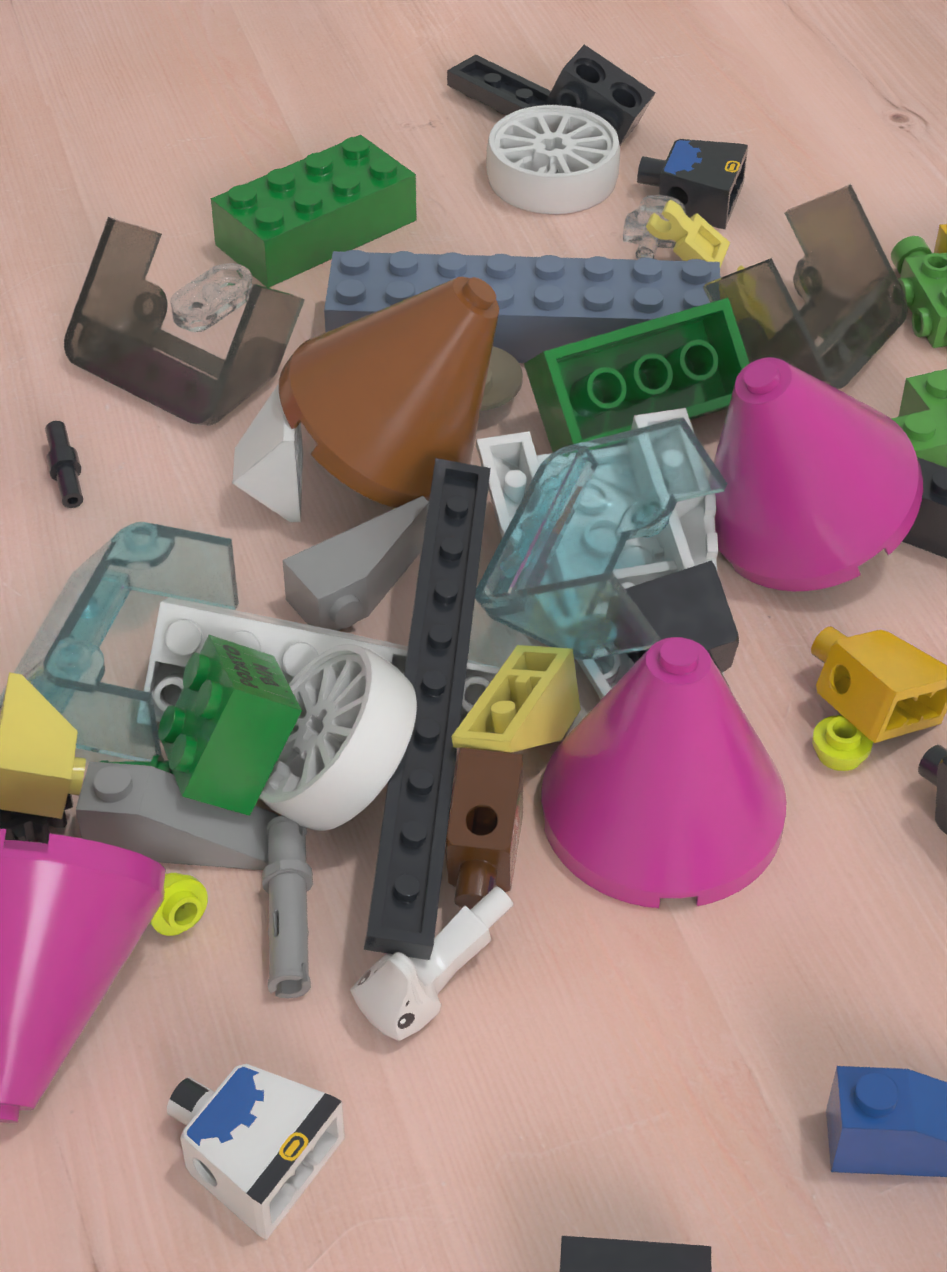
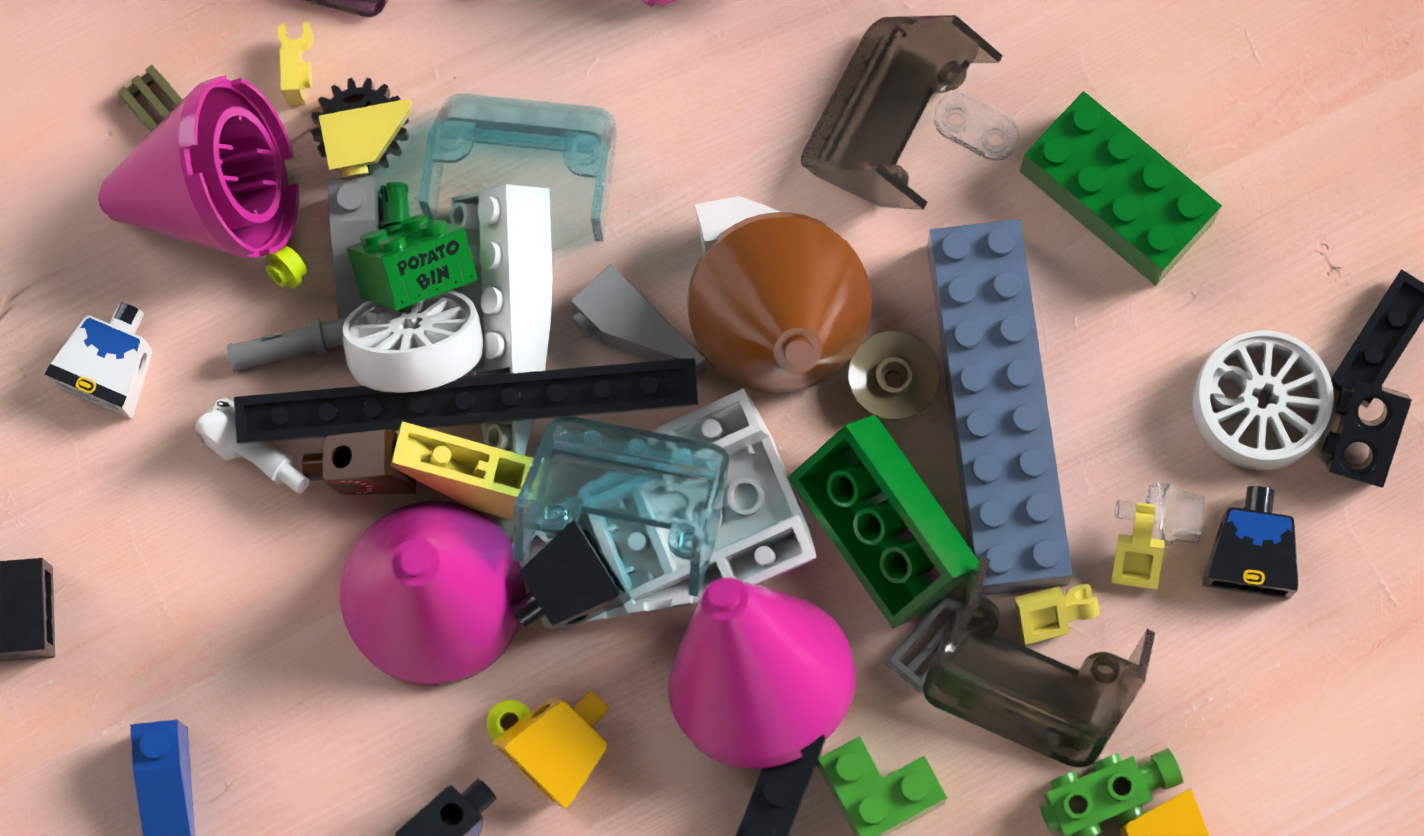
camera: 85 degrees right, 30 degrees up
(64, 464) = (731, 63): black bar -> none

